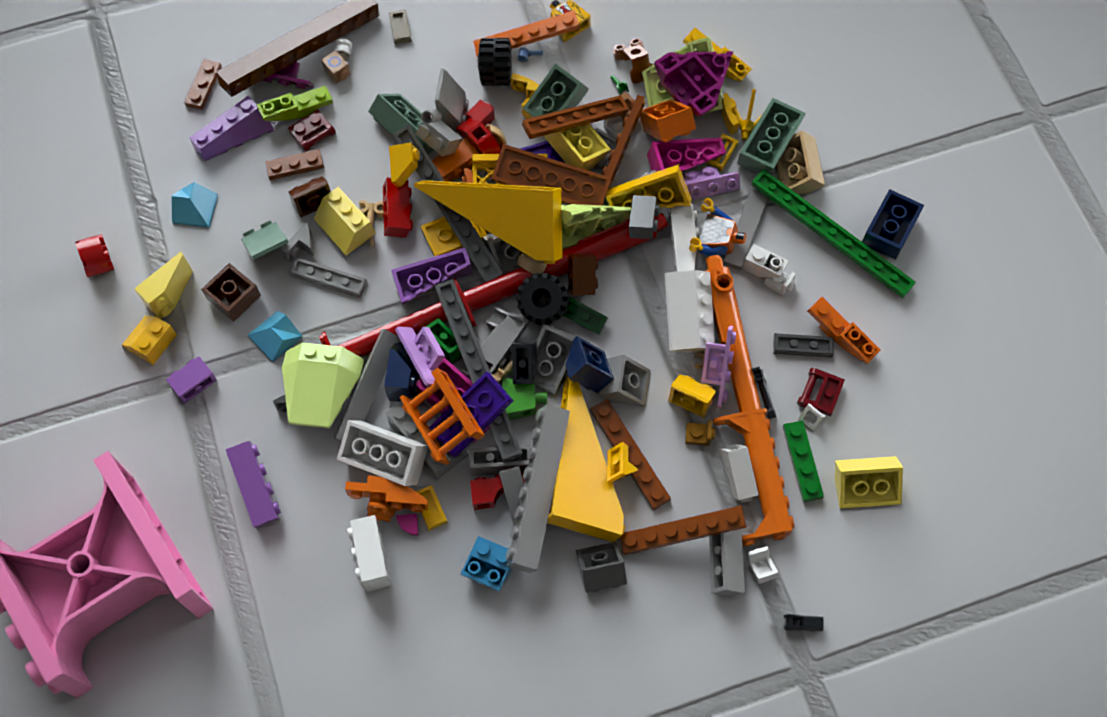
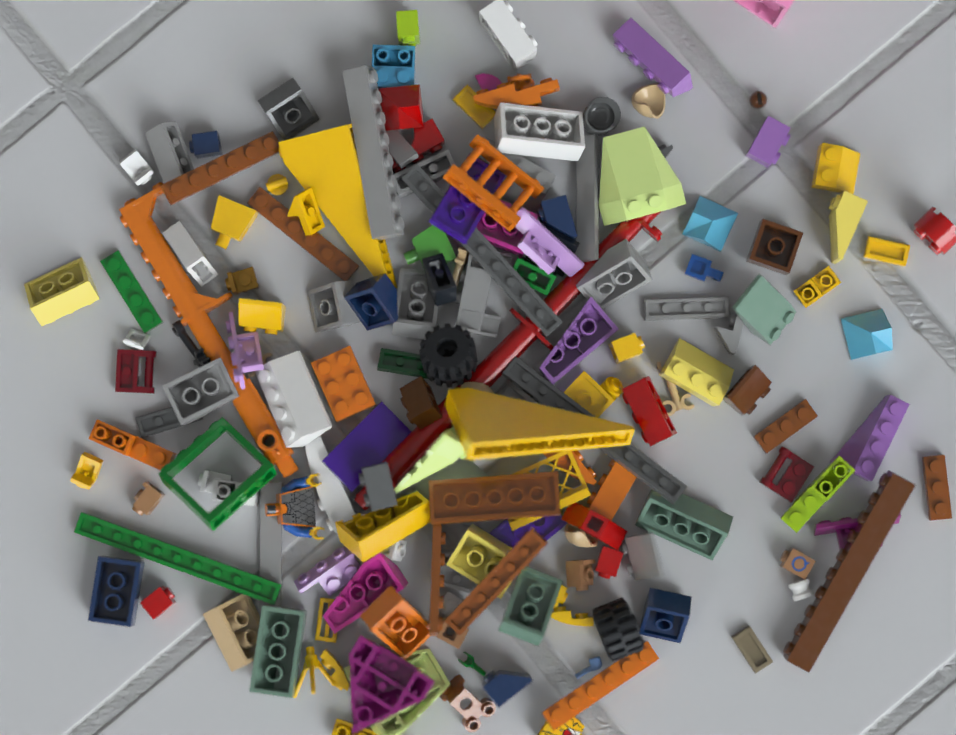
camera: 155 degrees right, 20 degrees up
(142, 261) = (886, 251): none -> yellow tile
(184, 420) = (754, 100): none -> reddish brown hinge
(217, 255) = (817, 286): none -> yellow slope
(274, 451) = (649, 101): none -> tan helmet
(300, 301) = (700, 268): none -> blue plate
(322, 450) = (601, 116): none -> dark grey helmet
(371, 316) = (615, 275): none -> light grey slope
(390, 254) = (626, 347): none -> yellow brick
(403, 162) = (660, 453): yellow slope -> none
(417, 239) = (613, 387): none -> yellow plate
(437, 133) = (638, 504): light grey hinge -> none
(455, 63) = (665, 615): none -> dark blue slope
(459, 594) = (408, 27): none -> lime brick
(495, 520) = (402, 107): none -> red slope
(506, 114) = (580, 574): none -> medium nougat brick
(598, 56) = (504, 685): none -> dark blue slope
(637, 504) = (277, 184): none -> yellow plate
(641, 260) = (366, 445): none -> dark purple tile
(641, 316) = (343, 384): none -> orange brick
(690, 486) = (231, 221): none -> yellow torso
(690, 563) = (205, 144): none -> dark blue brick
(770, 345) = (200, 391): none -> light grey slope
(798, 302) = (238, 496): none -> green window
(809, 623) = (79, 131): black bar -> none
(843, 286) = (147, 499): none -> medium nougat brick
(859, 207) = (158, 601): none -> red brick
(890, 325) = (87, 471): none -> yellow bracket

